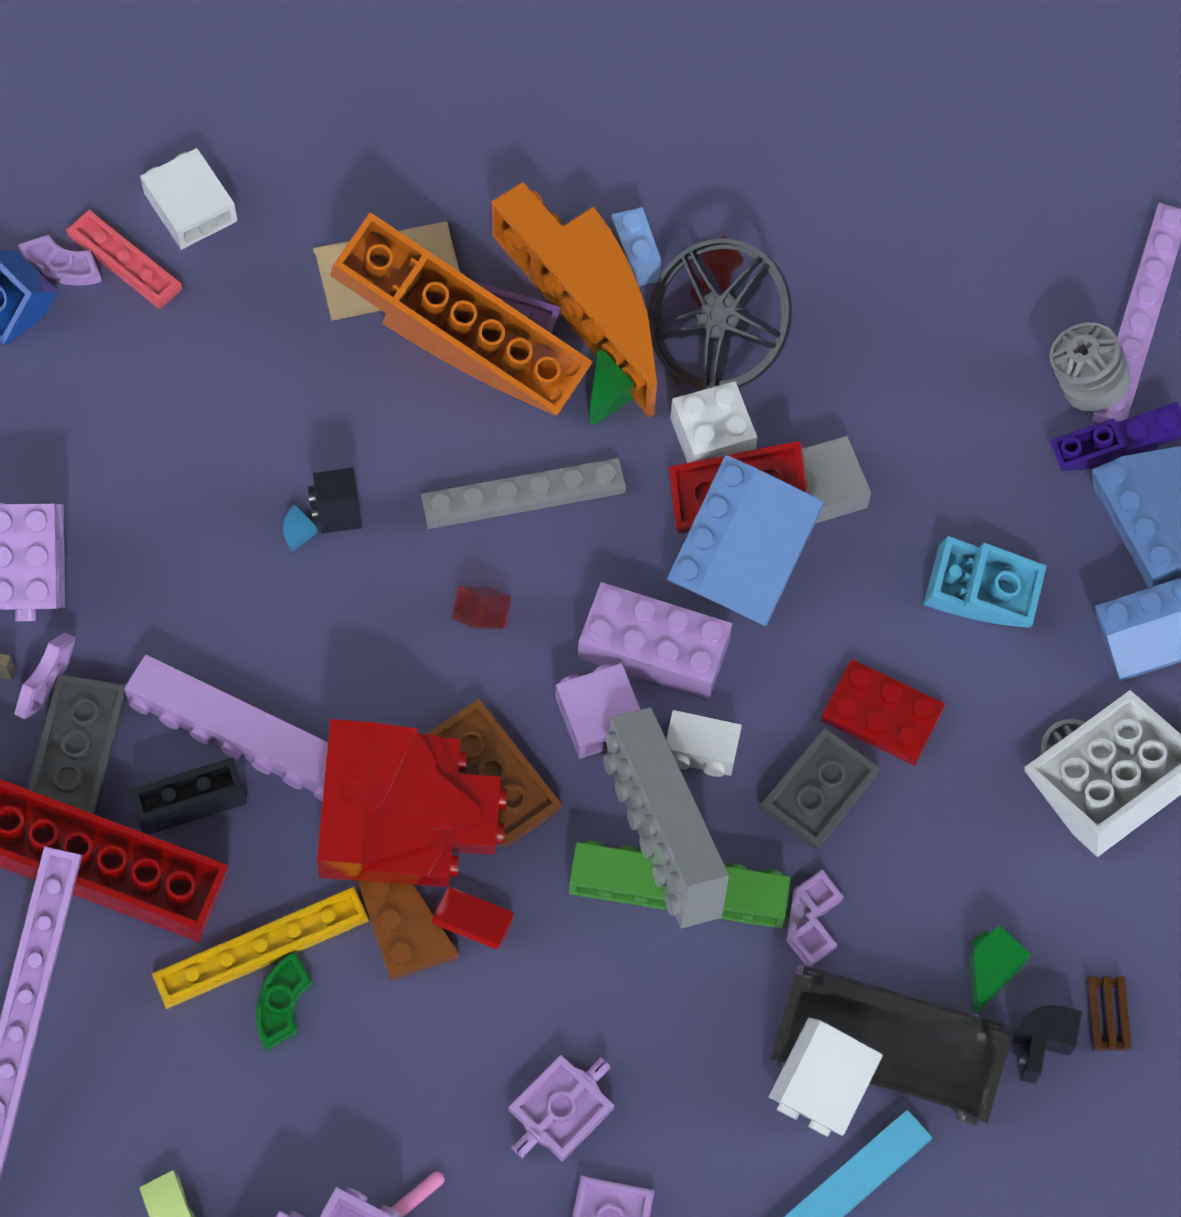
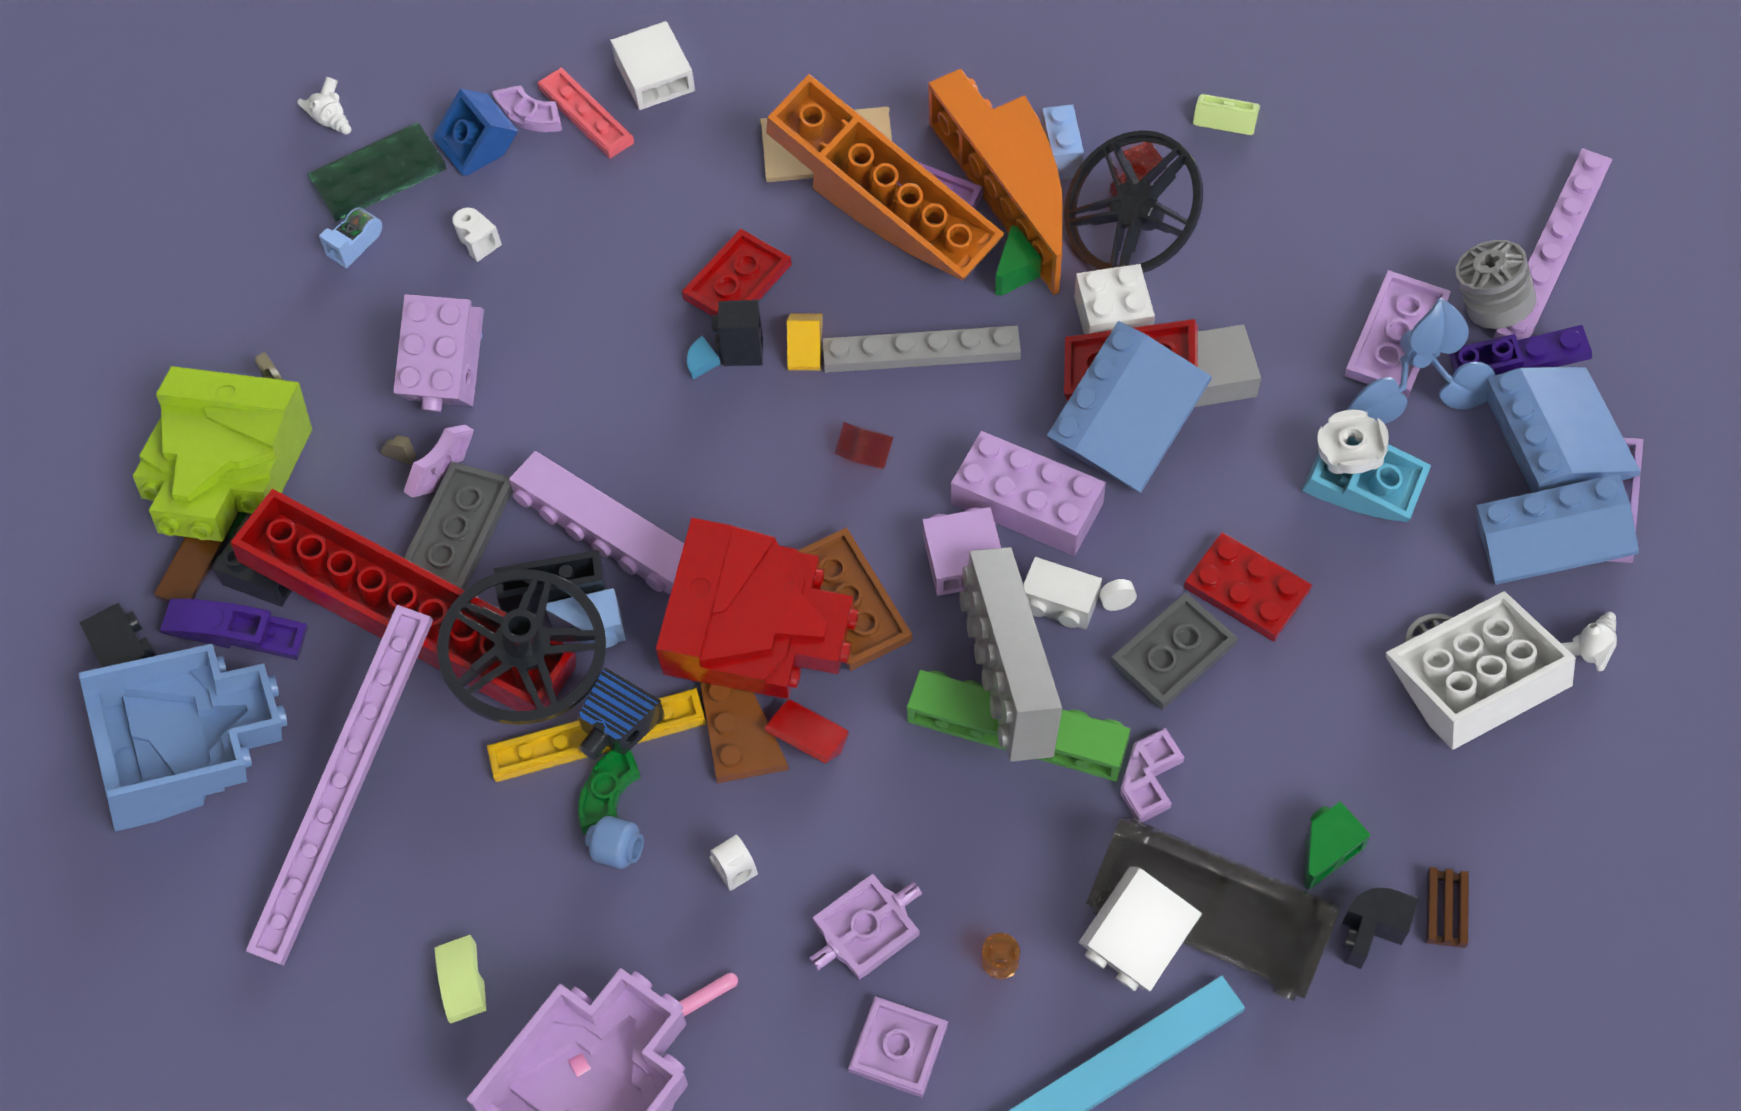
camera: 15 degrees right, 5 degrees down
(33, 412) = (476, 233): none -> white leg
(175, 870) = (523, 644): none -> black wheel
(233, 827) = (570, 614): none -> light blue slope
(281, 927) = (617, 715): none -> black torso
(300, 1057) = (614, 842): none -> medium blue head
(320, 433) = (737, 273): none -> red plate
(402, 497) = (804, 341): none -> yellow slope
(422, 1062) = (730, 860): none -> white leg
(699, 1113) = (1000, 947): none -> clear orange wheel
(758, 737) = (1117, 594): none -> white tile
(798, 196) = (1226, 114): none -> yellowish green slope
(965, 571) = (1353, 459): none -> white plate
(998, 426) = (1395, 311): none -> lavender plate
(1042, 437) = (1438, 331): none -> medium blue plant

